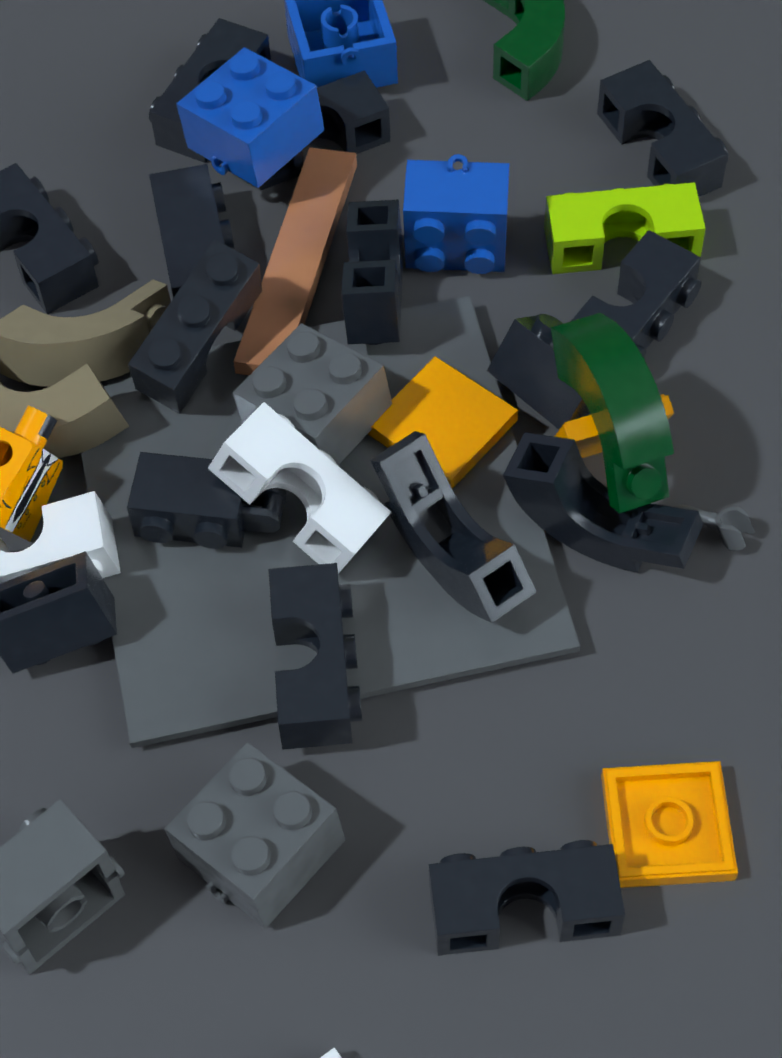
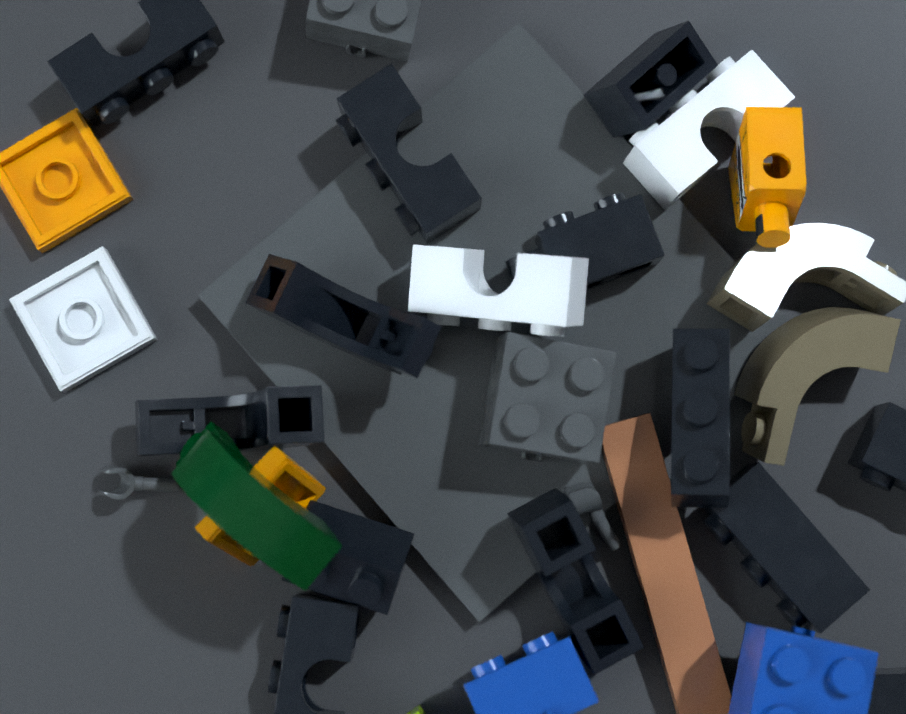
camera: 150 degrees right, 25 degrees up
(326, 323) = (588, 501): none -> dark grey hand
(453, 414) = (424, 454): light orange tile -> none
(703, 684) = (83, 319): none -> white tile

